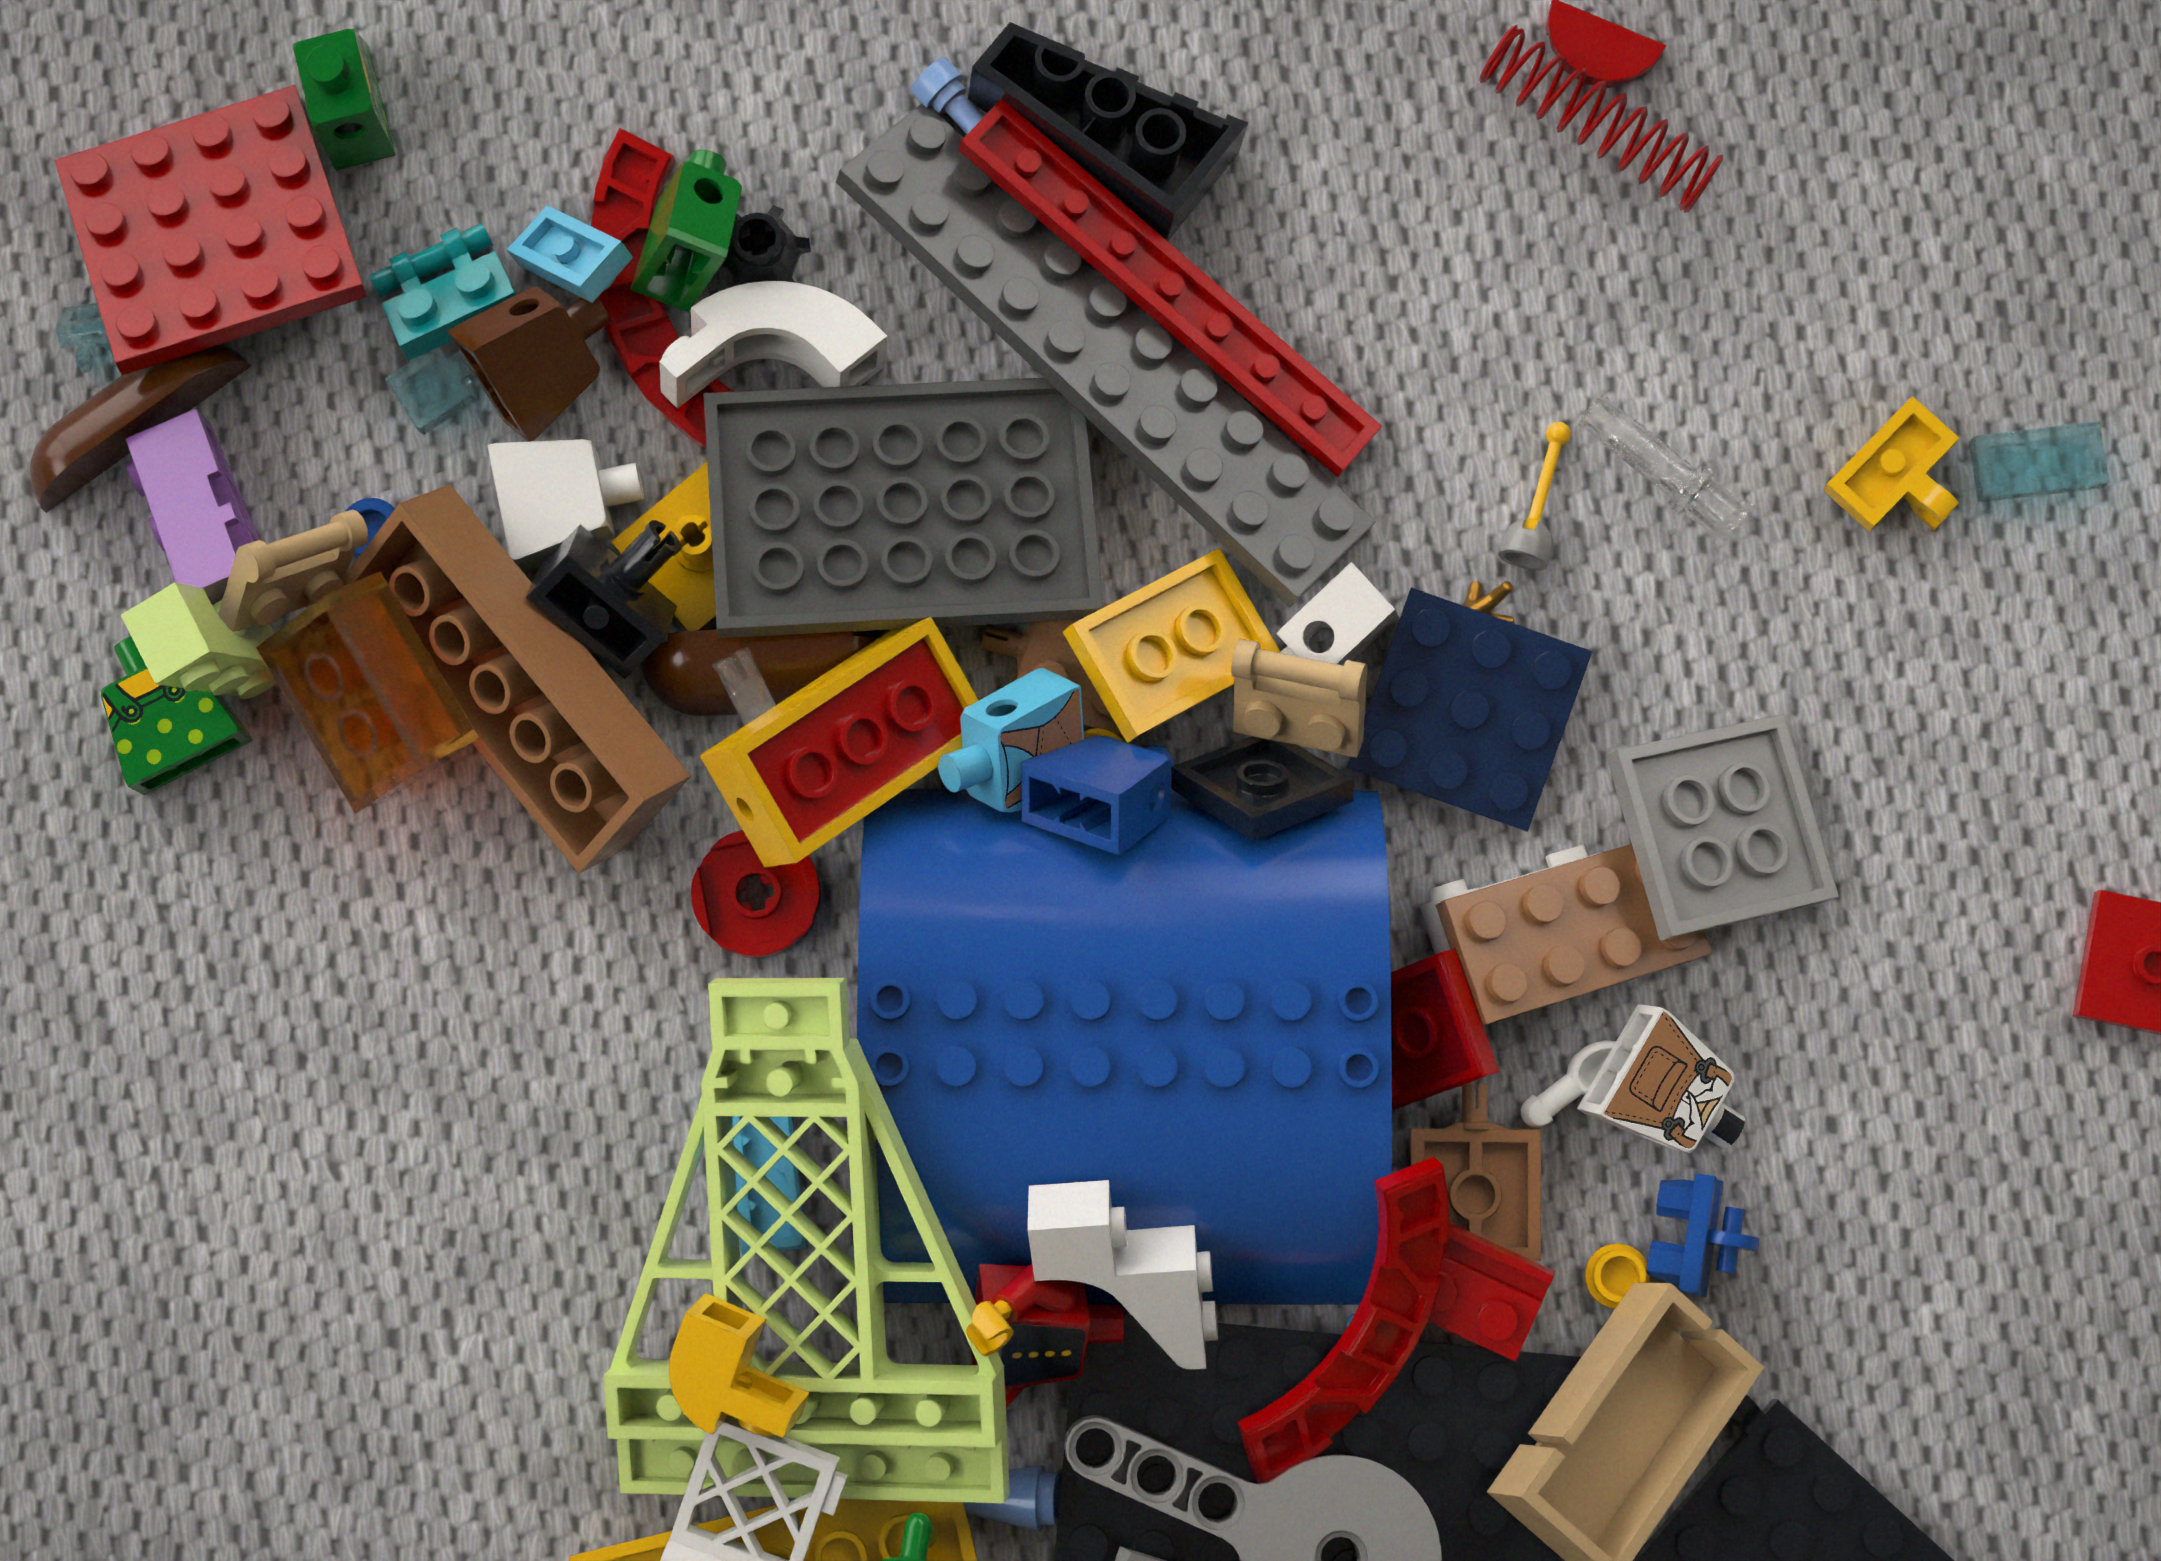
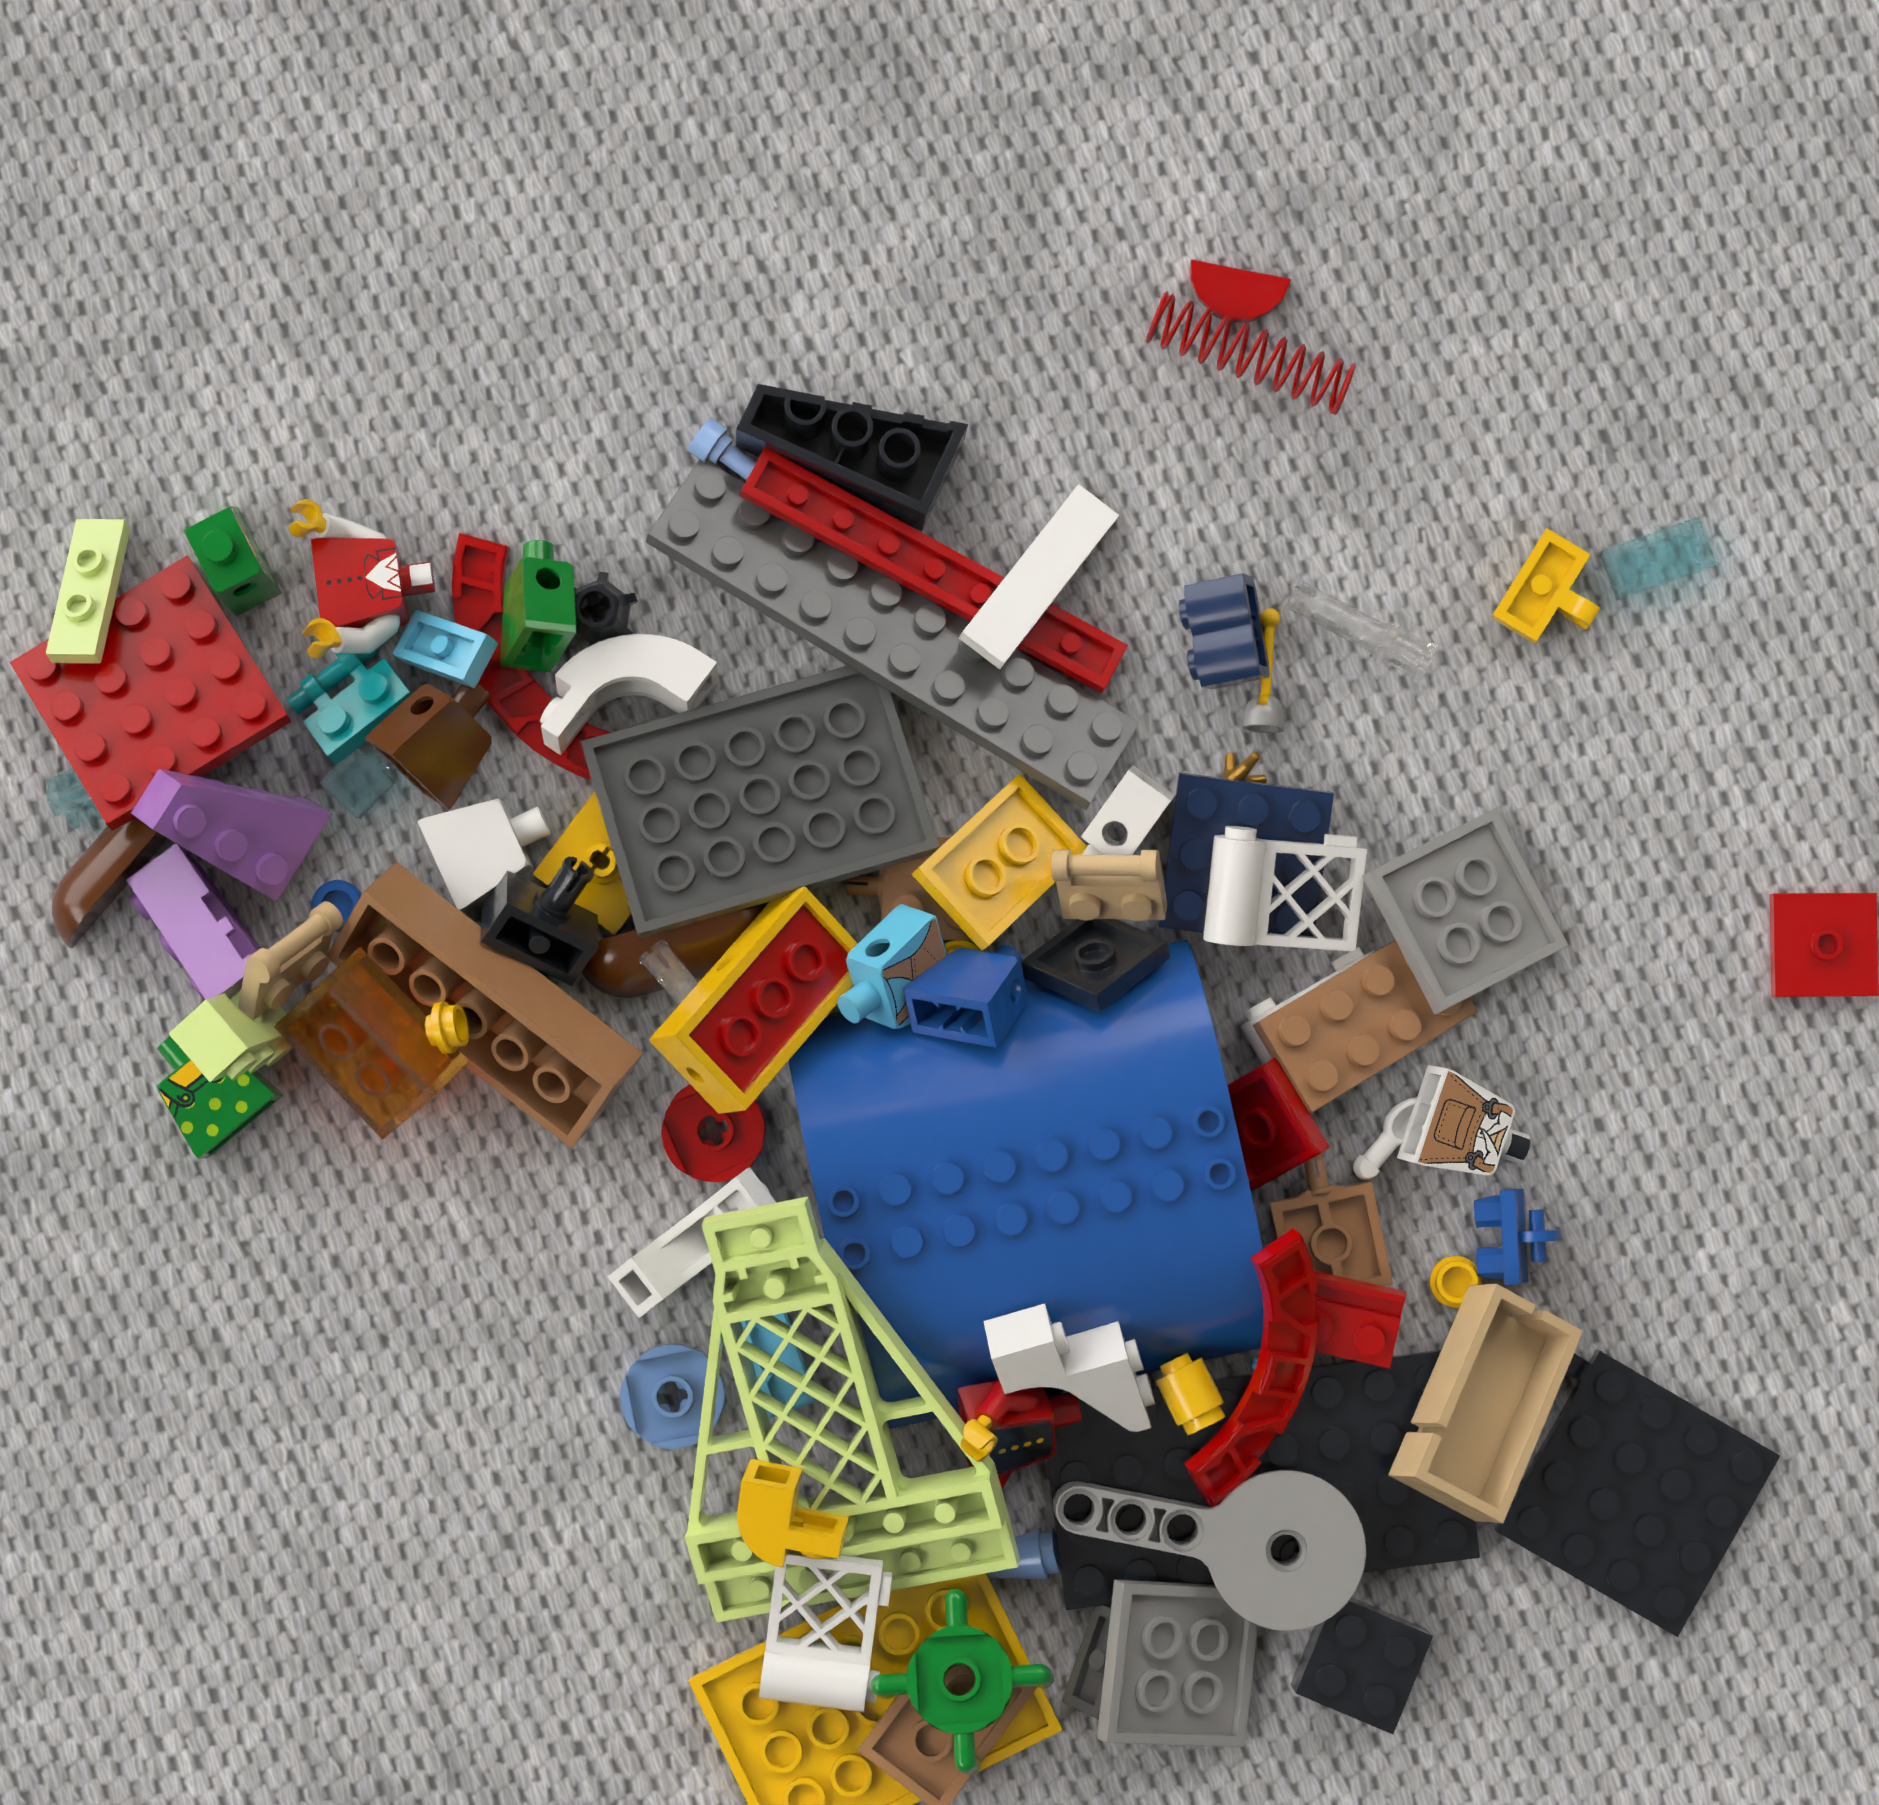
camera: 10 degrees left, 5 degrees up
(166, 97) = (88, 591): none -> yellowish green plate
(268, 405) = (236, 828): none -> medium lavender wedge
(461, 688) = (447, 1027): none -> yellow plate
(484, 154) = (357, 583): none -> torso
(607, 1176) = (648, 1378): none -> medium blue plate
(677, 1031) = (683, 1248): none -> white arch
(1263, 1337) = (1190, 1393): none -> yellow brick
(1292, 321) = (1038, 576): none -> white tile
(1459, 736) = (1243, 885): none -> white piece
(1501, 434) = (1225, 632): none -> dark blue brick

